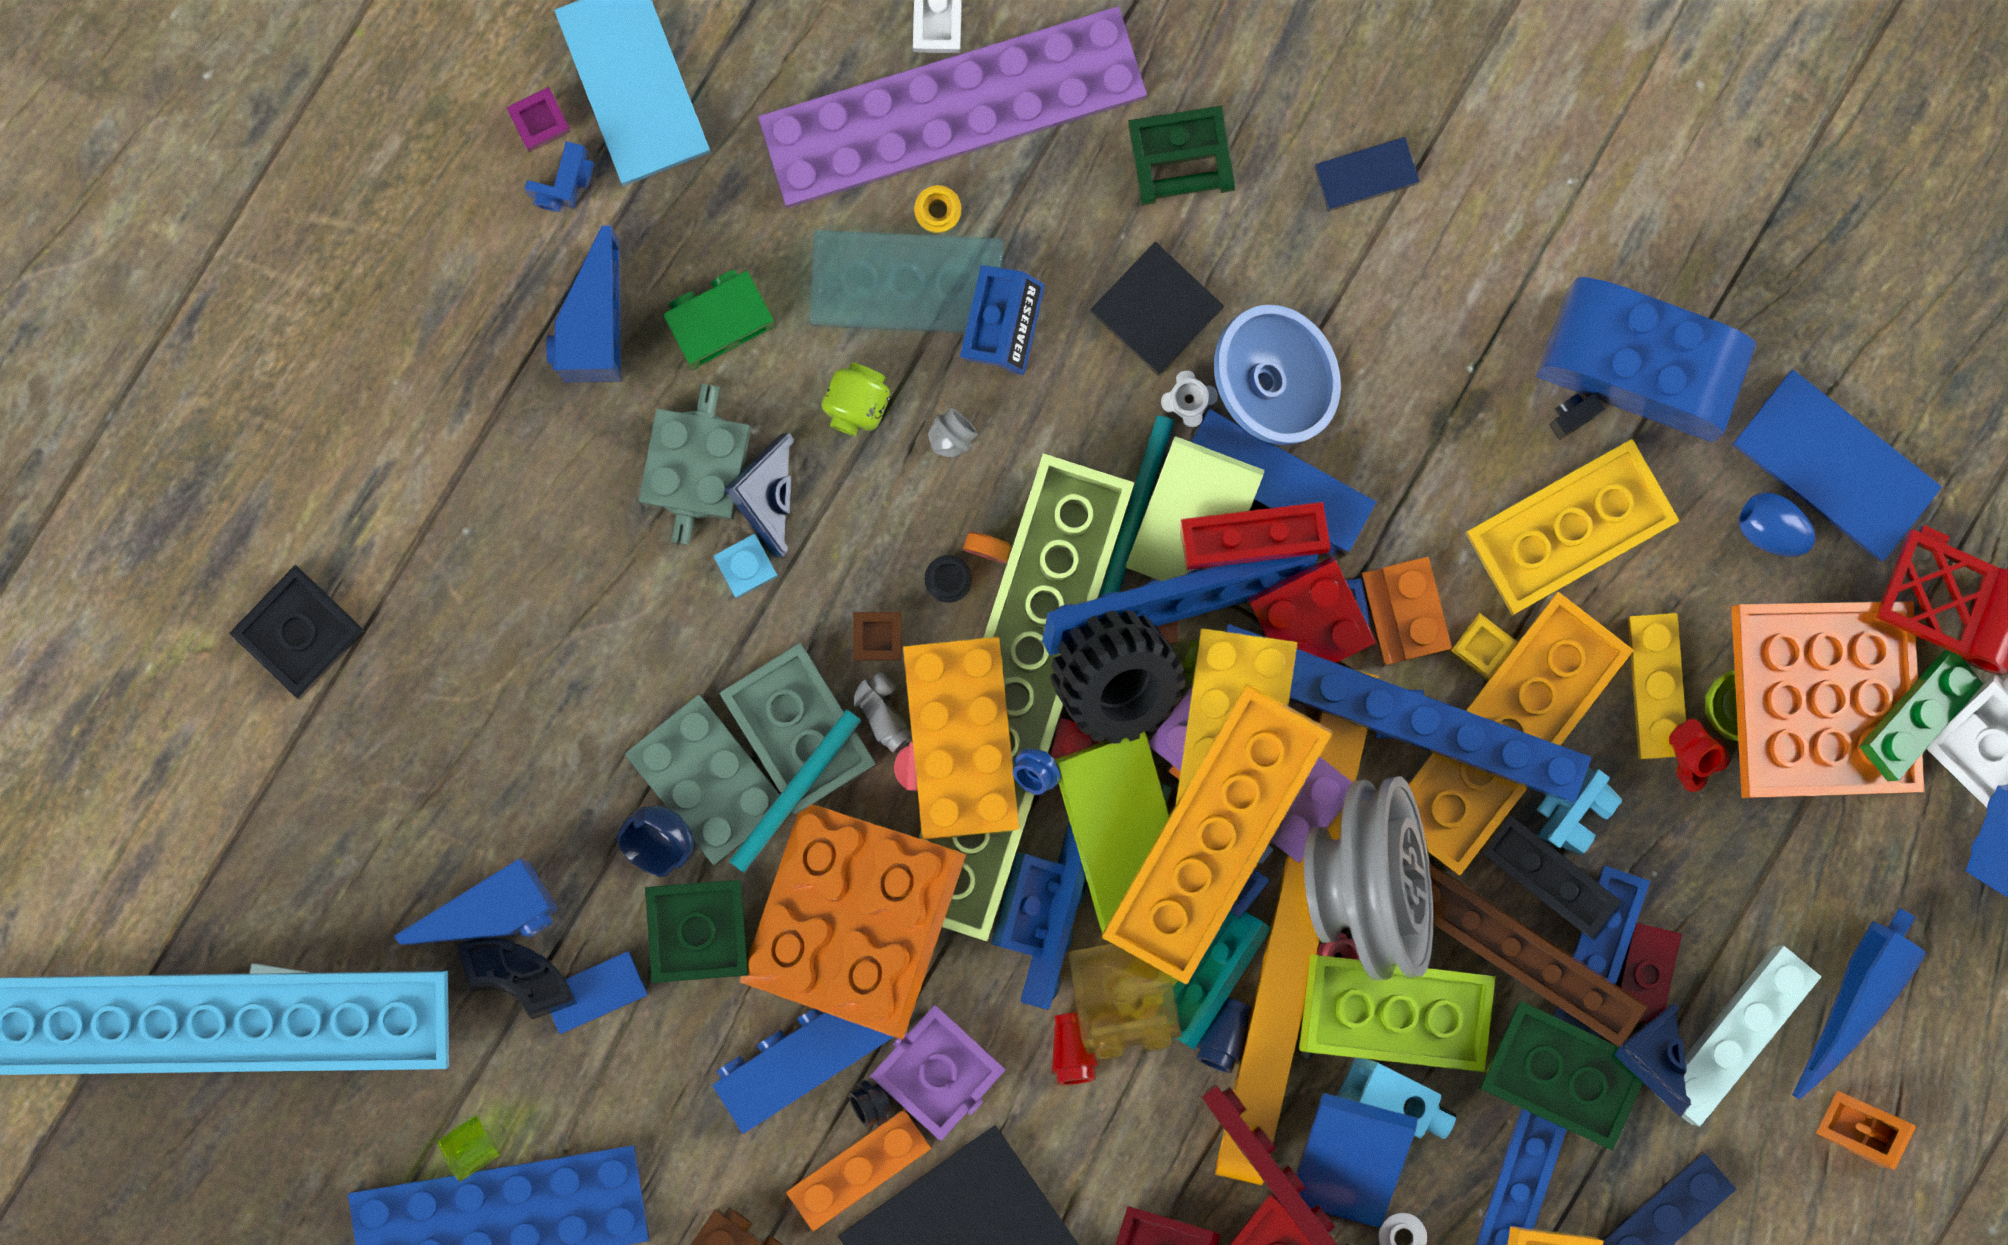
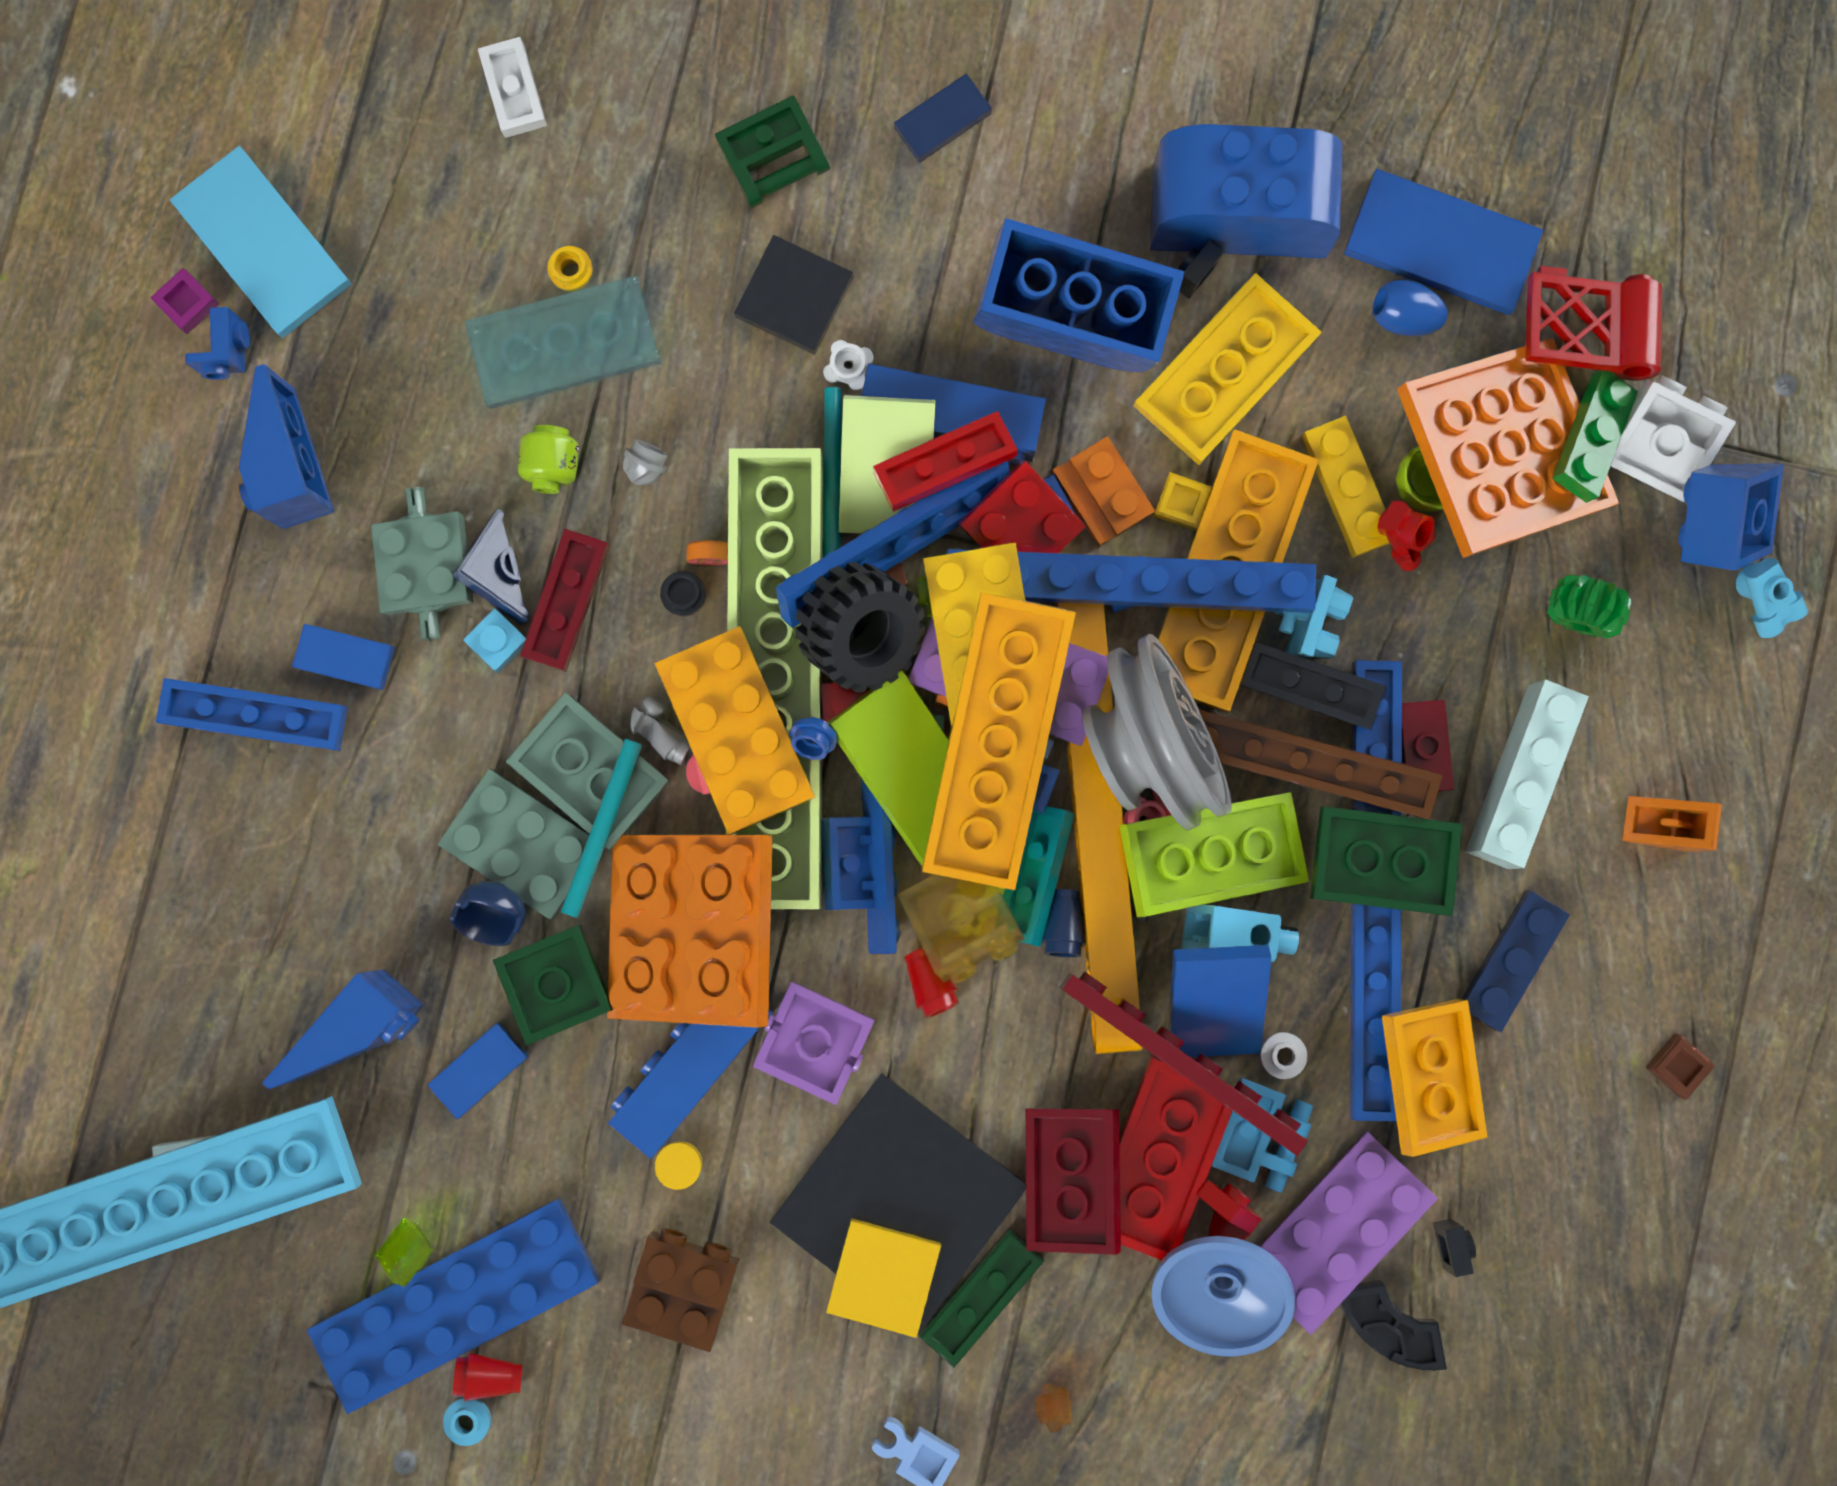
camera: 15 degrees left, 0 degrees up
(297, 632) = (107, 829): black tile -> none
(479, 563) = (252, 714): none -> blue plate
(517, 971) = (402, 1075): black tile -> none
(587, 533) = (343, 657): none -> blue tile
(718, 318) = (401, 426): green brick -> none
(764, 1151) = (678, 1165): none -> yellow tile
(828, 548) = (565, 600): none -> dark red plate
(858, 1170) = (770, 1155): orange plate -> none
(870, 1103) = (760, 1091): black plate -> none
(877, 636) = (633, 665): reddish brown plate -> none
(952, 107) = (555, 175): medium lavender plate -> none
(1002, 319) = (657, 344): blue panel -> none
(1295, 369) = (918, 314): medium blue dish -> none
(1439, 414) = (1077, 298): none -> blue brick
(1659, 1059) = (1469, 820): dark blue tile -> none
(1855, 886) = (1589, 606): none -> green gear
(1869, 987) = (1627, 692): blue piece -> none

